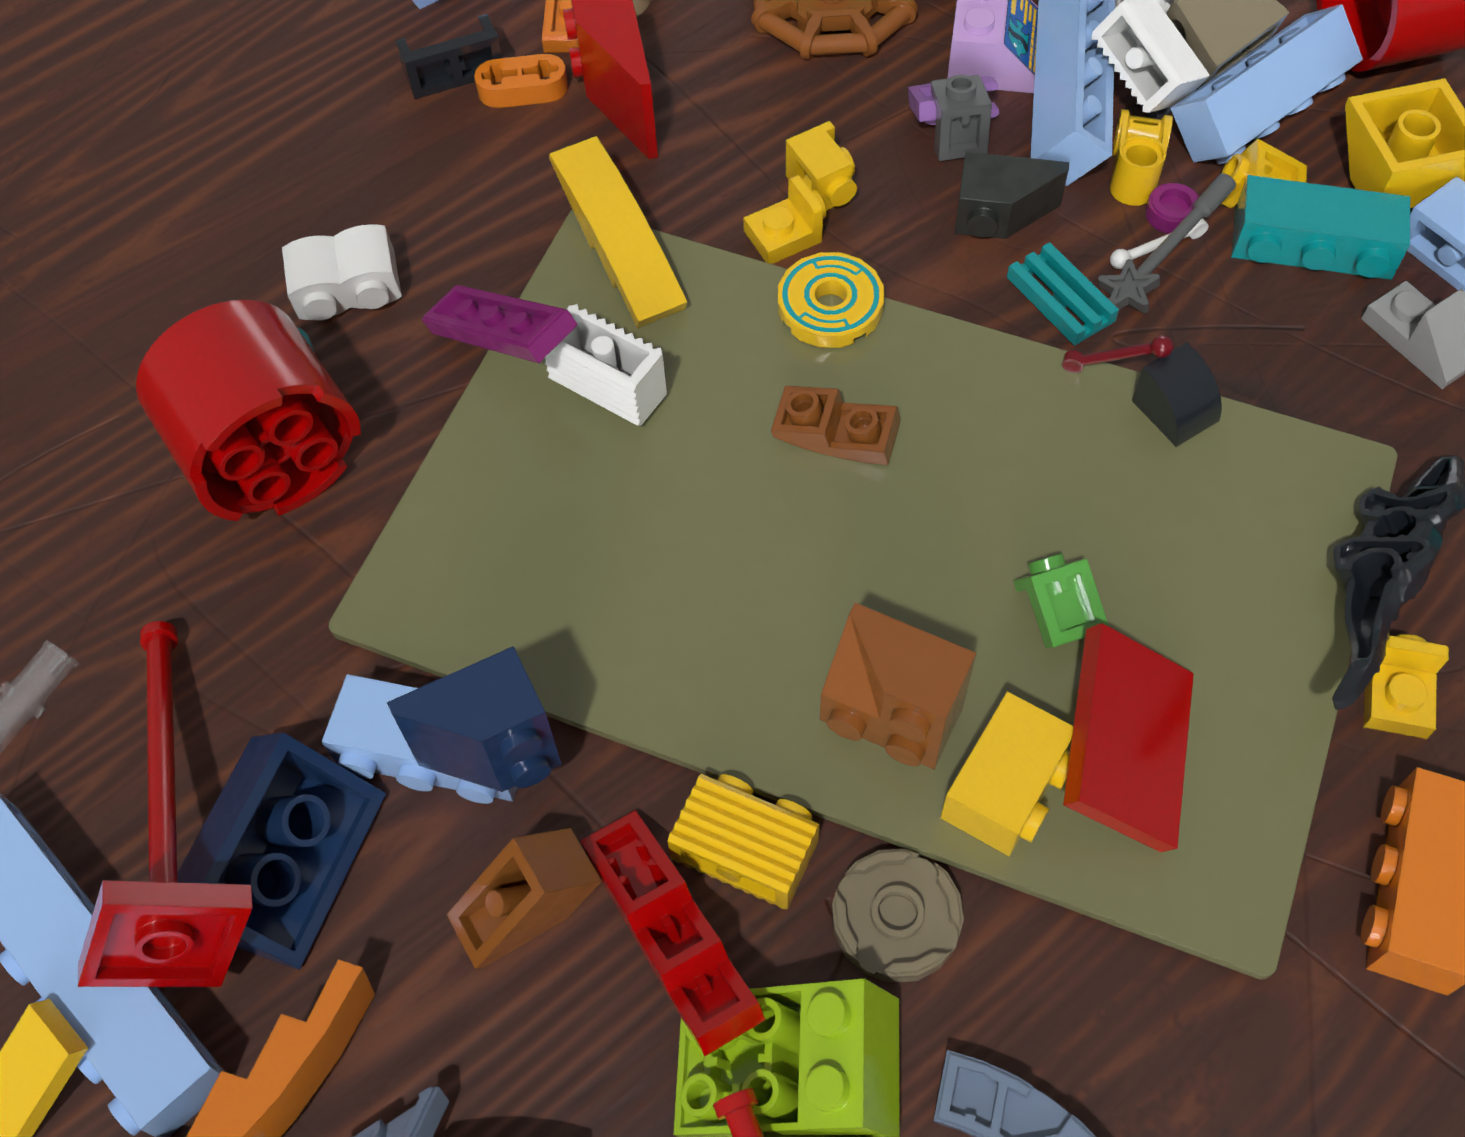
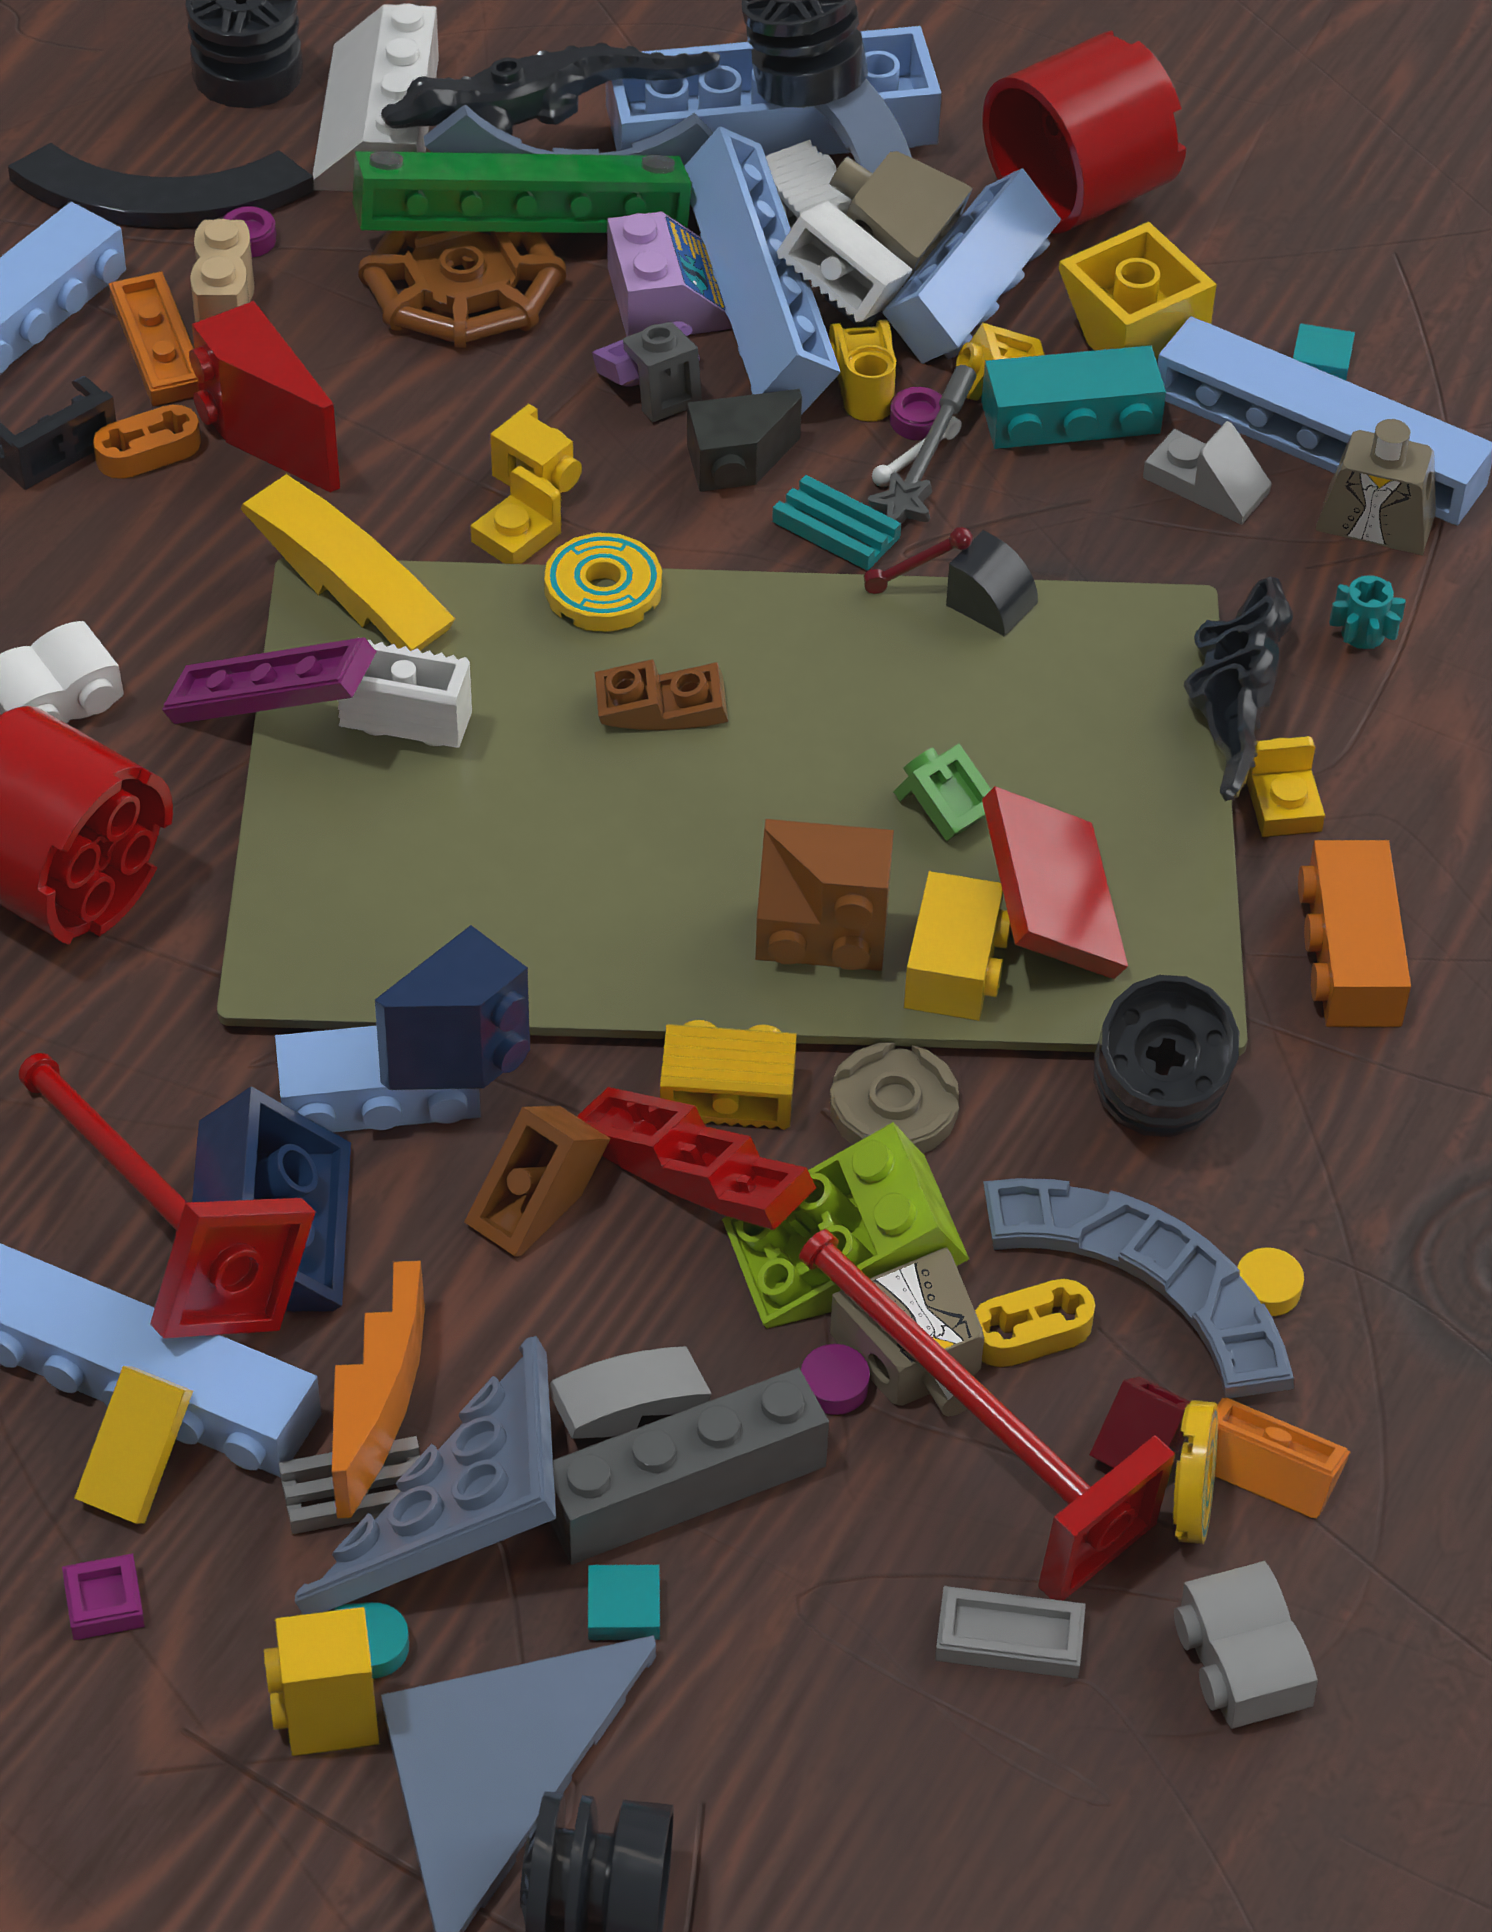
camera: 25 degrees left, 10 degrees down
(1192, 1026) = (1169, 1020): none -> black wheel

